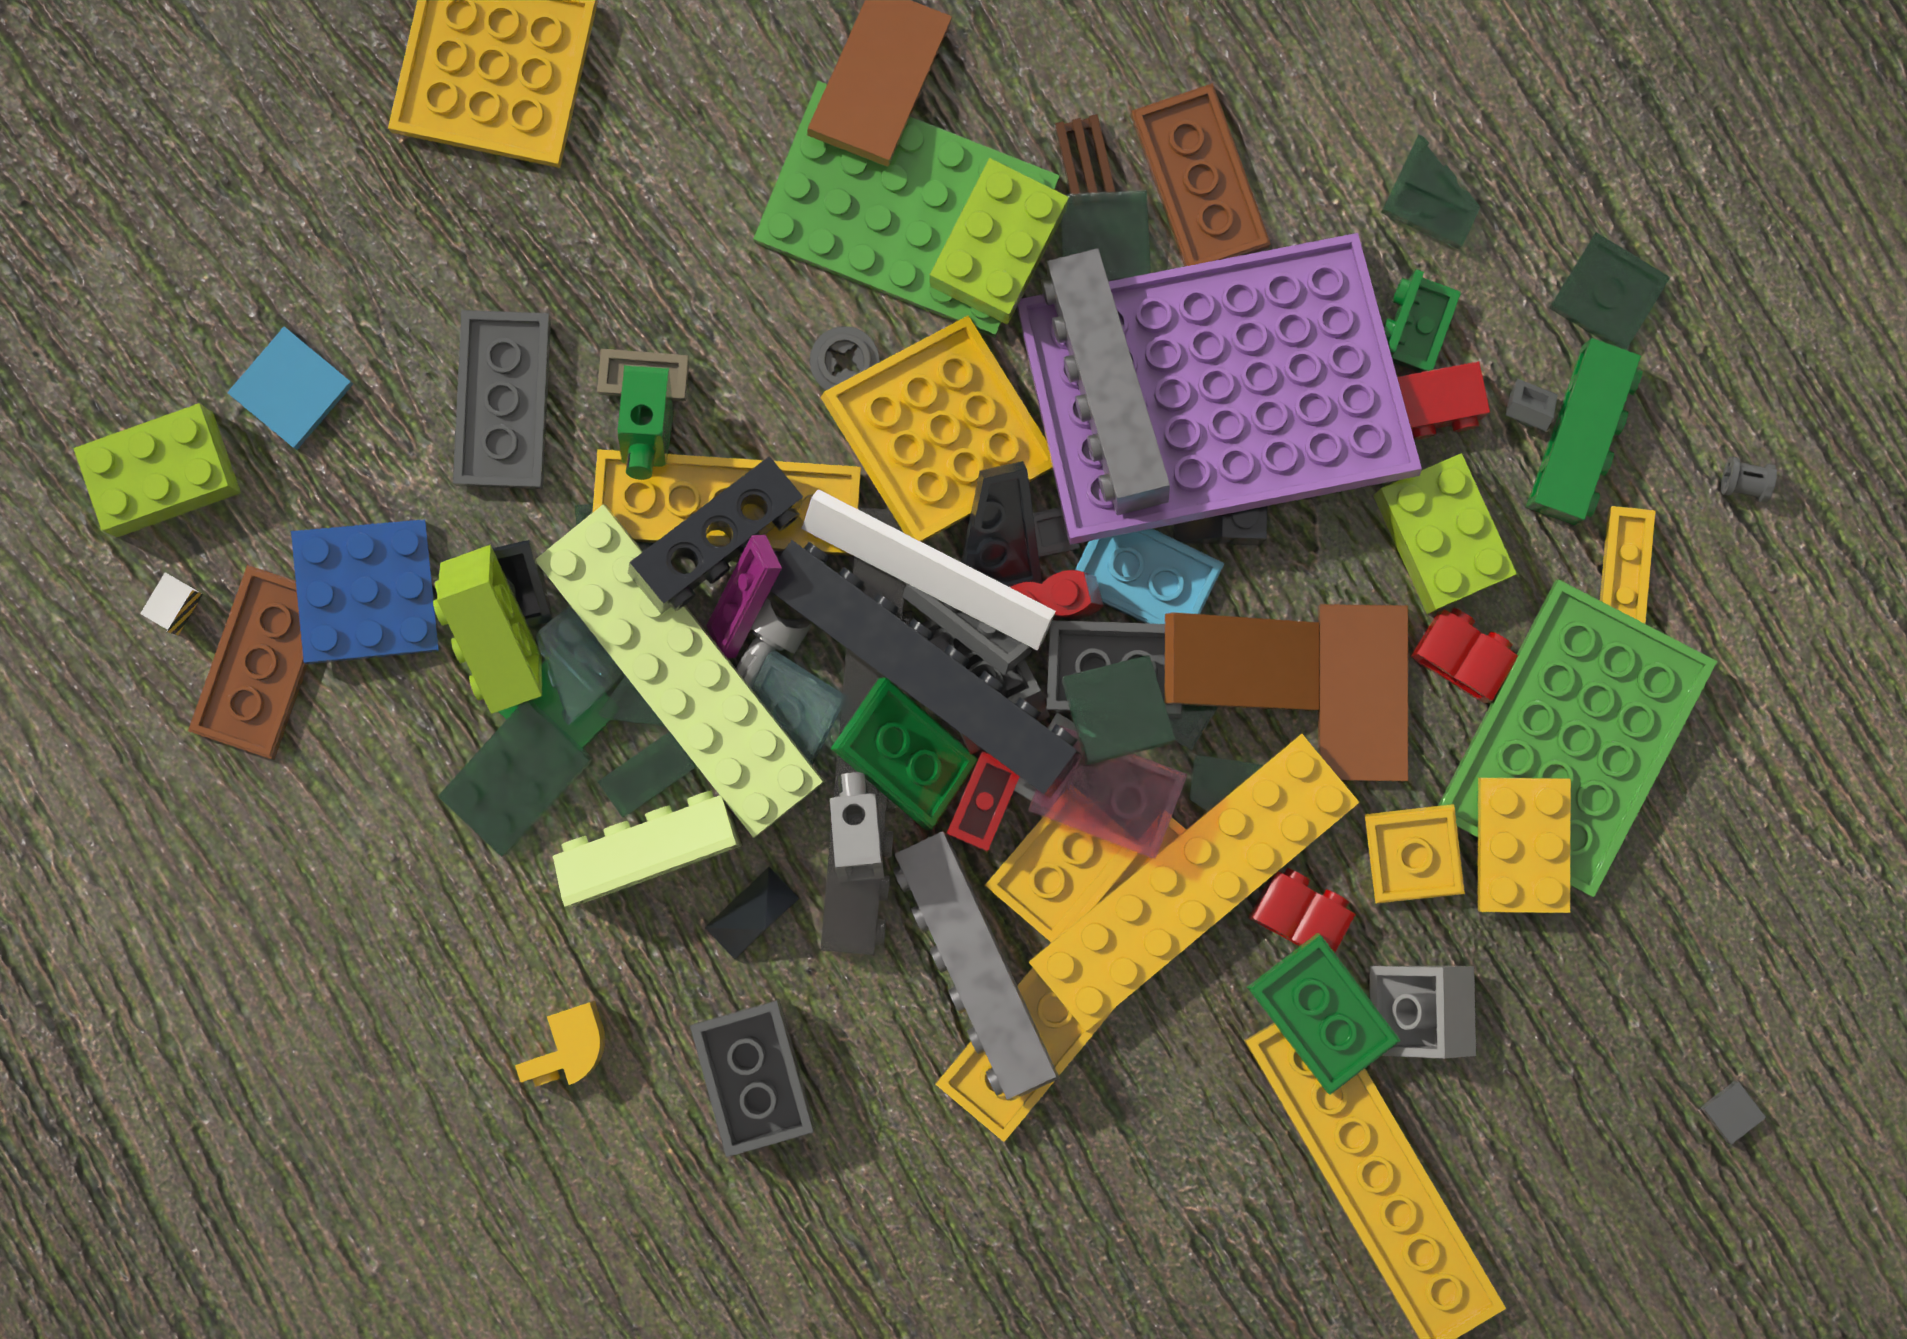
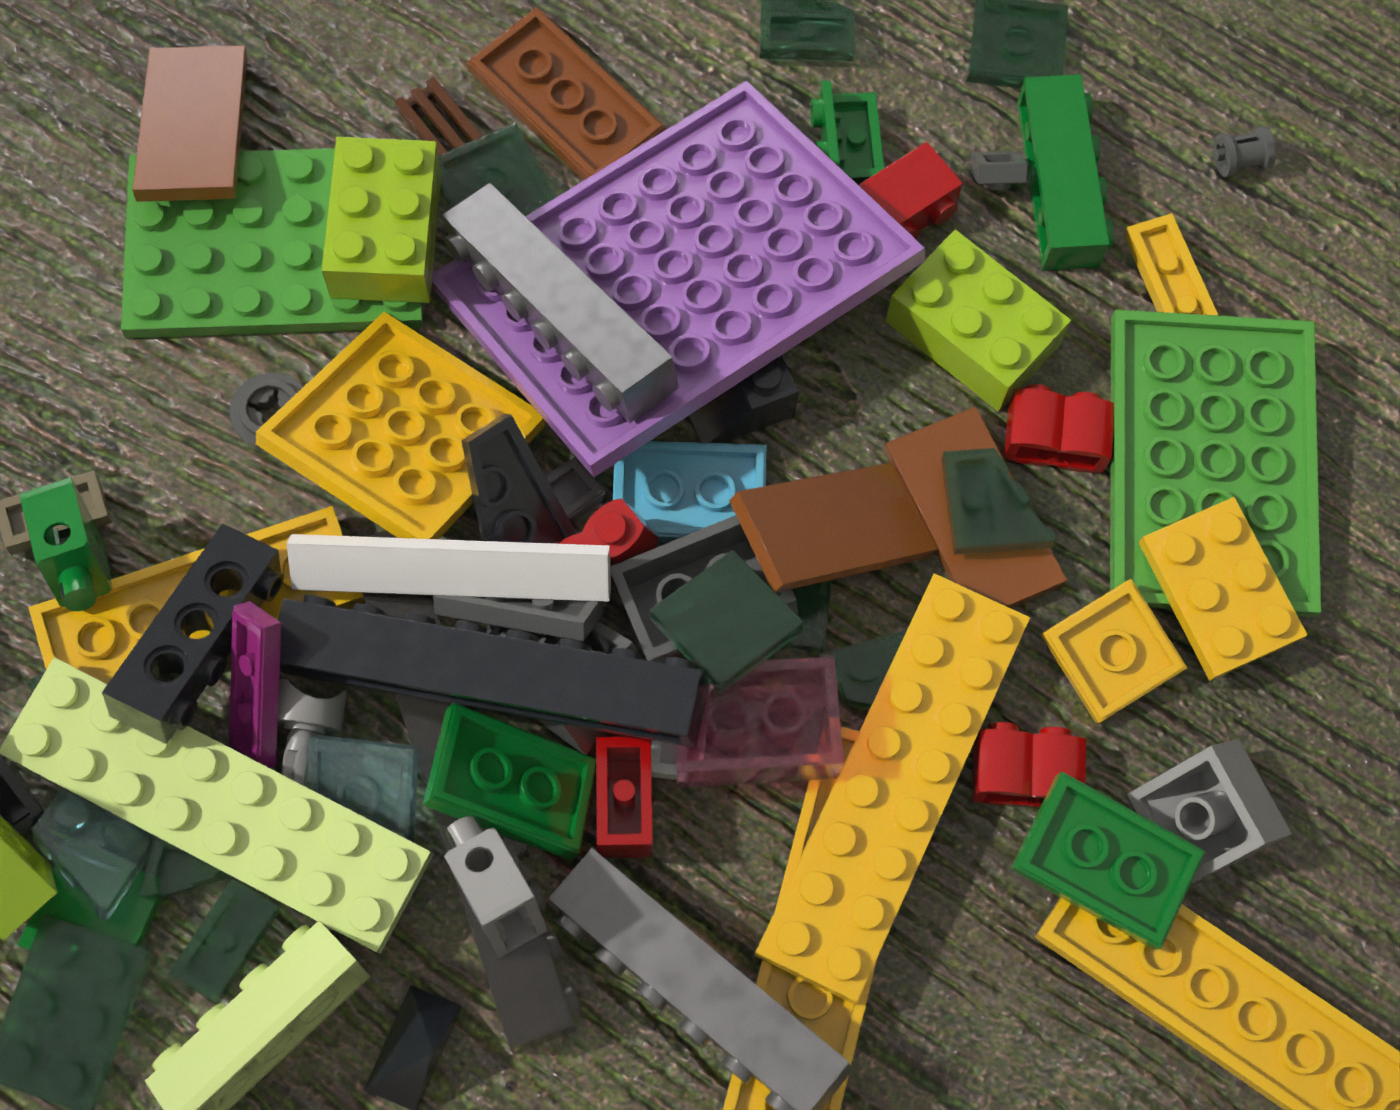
camera: 25 degrees left, 15 degrees down
(1054, 875) = (738, 847): yellow plate -> none
(1374, 696) = (988, 506): none -> clear green wing

